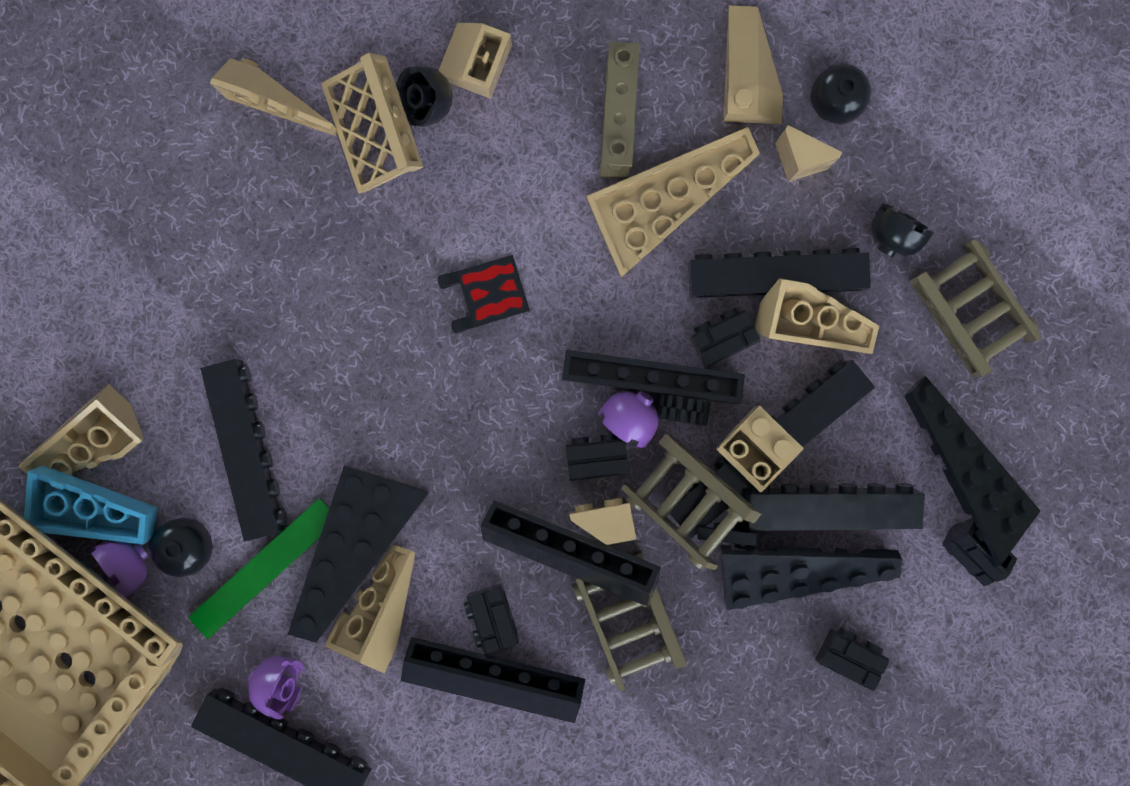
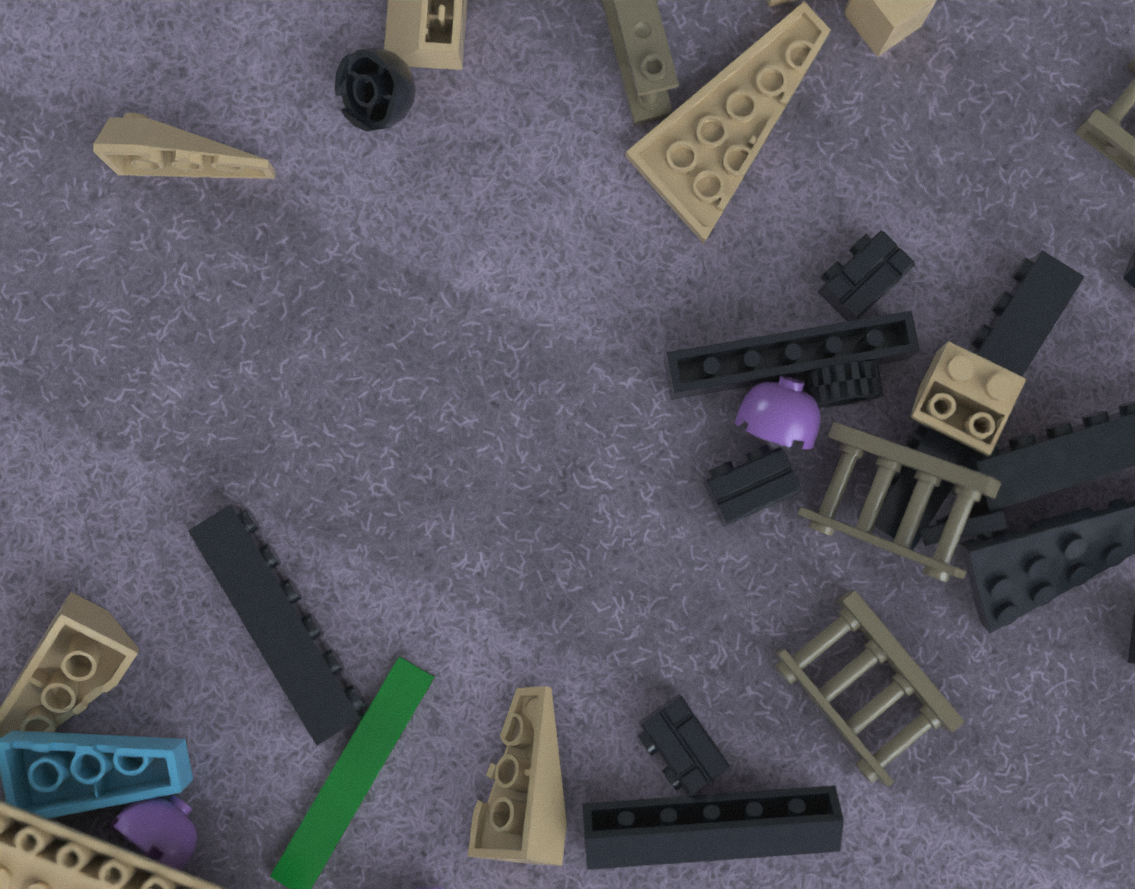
camera: 15 degrees left, 5 degrees down
(181, 547) = (232, 783): black cylinder -> none
(357, 531) = (464, 684): black wing -> none
(388, 109) = (334, 118): tan fence -> none
(490, 292) = (539, 314): flag -> none
(570, 553) = (762, 619): black brick -> none
(607, 523) = (797, 565): tan slope -> none
(759, 273) = (907, 174): black brick -> none
(807, 316) = (963, 212): tan wedge -> none
(899, 232) = (1043, 72): black cylinder -> none

